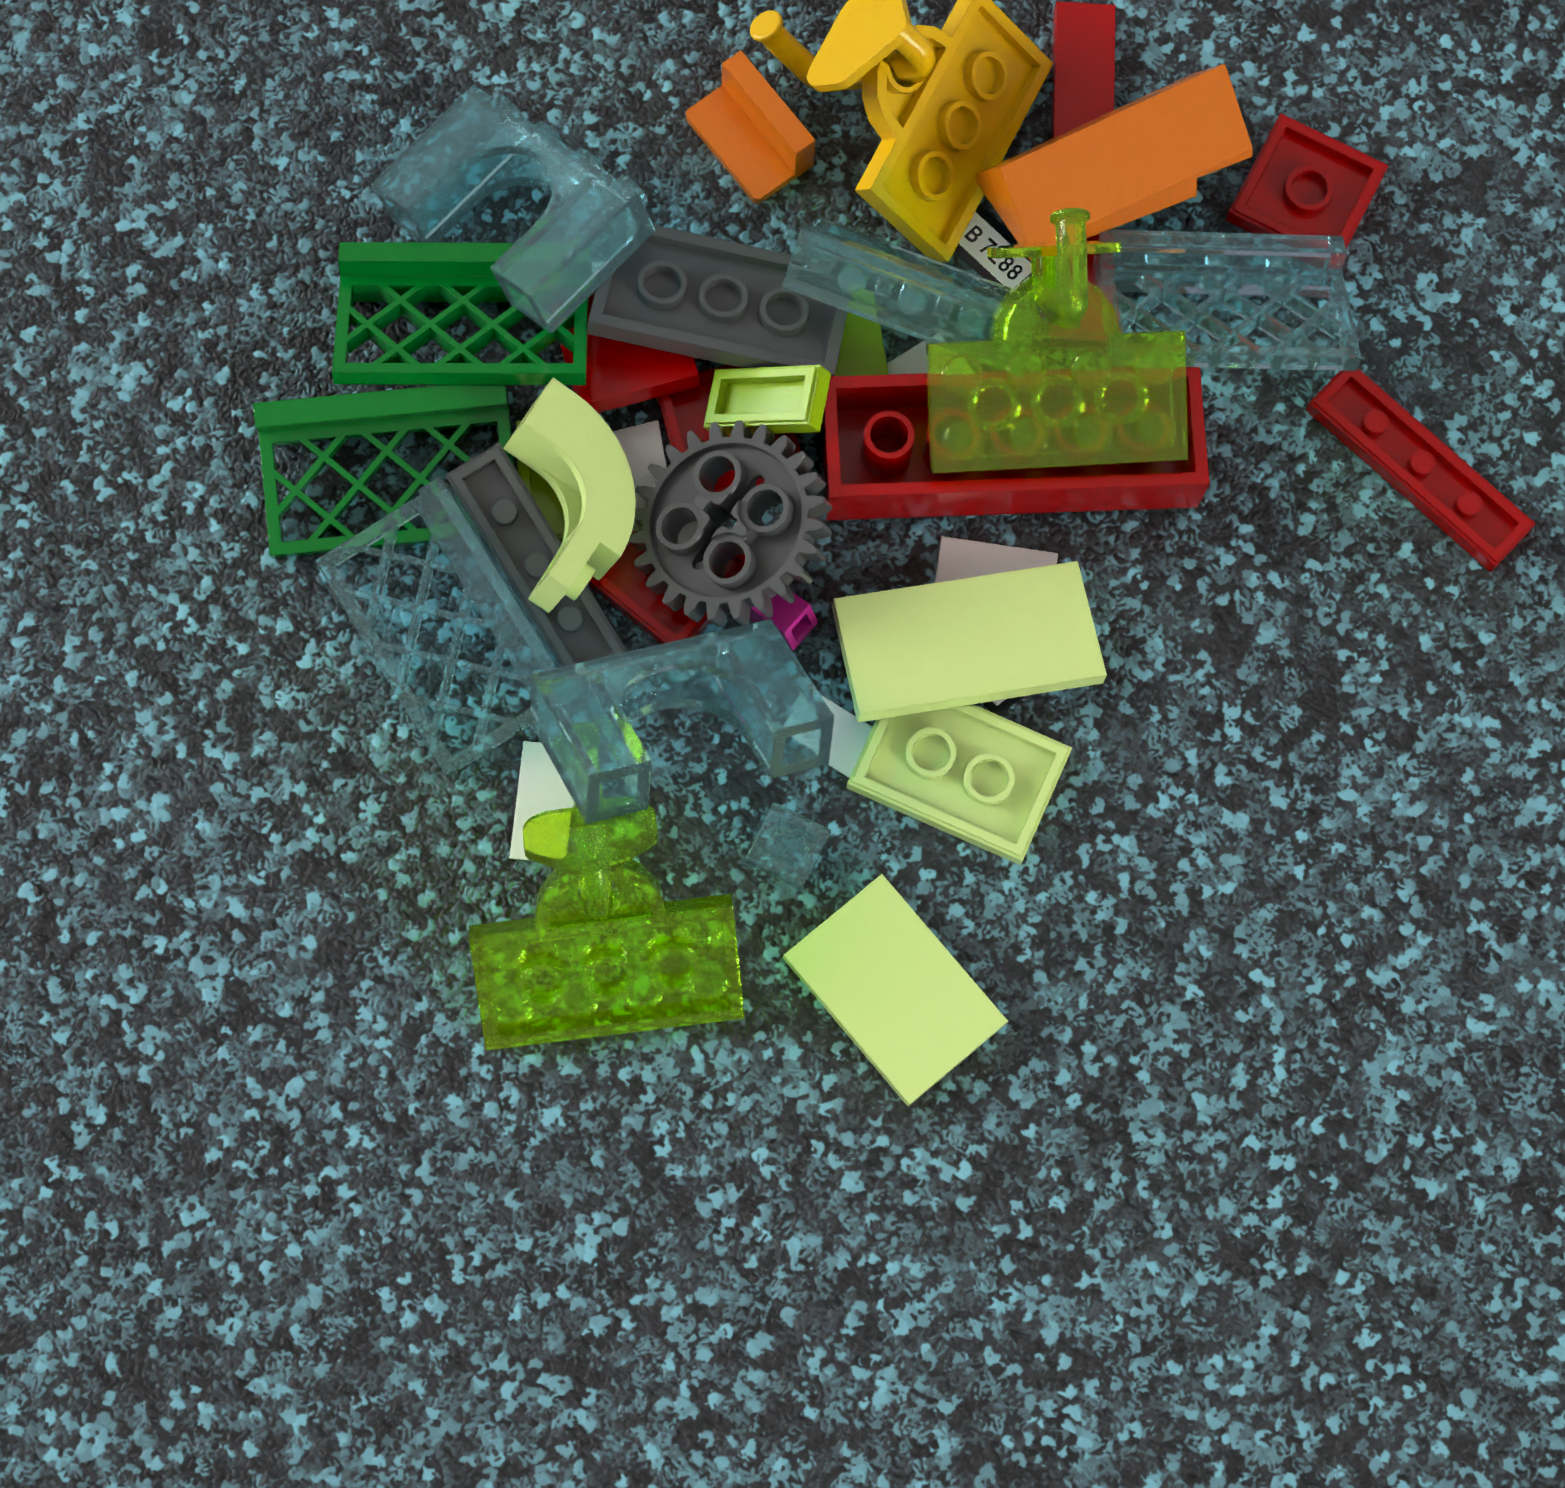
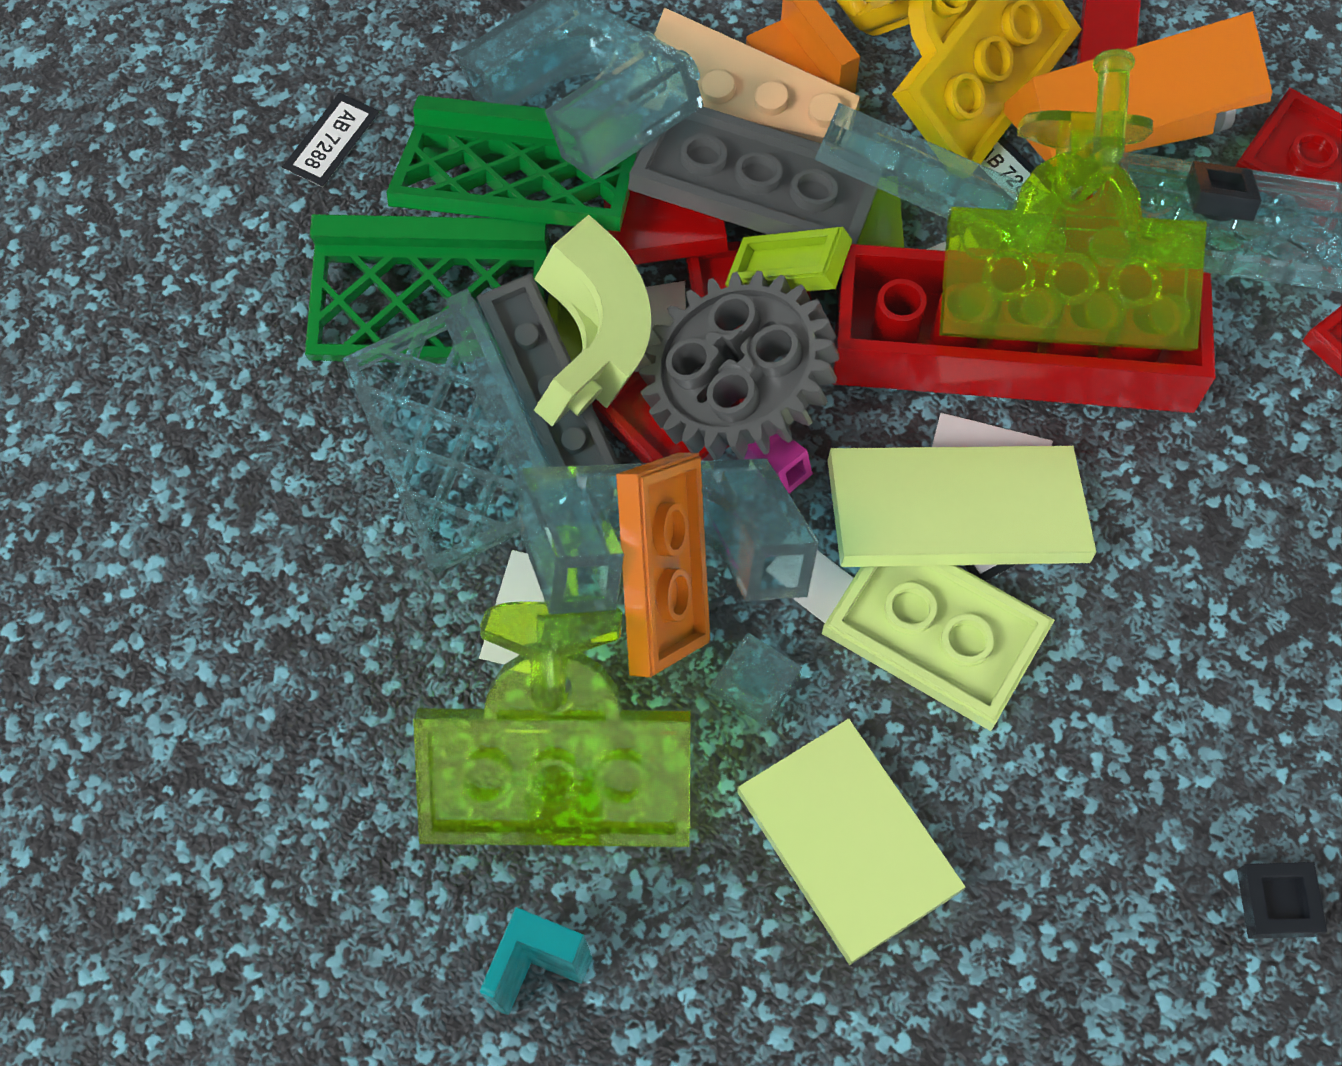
camera: 15 degrees right, 10 degrees down
(243, 291) = (330, 139): none -> sticker
(620, 1130) = (537, 942): none -> teal panel
(686, 750) = (663, 562): none -> orange tile
(697, 180) = (754, 84): none -> light nougat wing
(1207, 271) = (1223, 191): none -> black plate
(1299, 993) = (1281, 900): none -> black plate

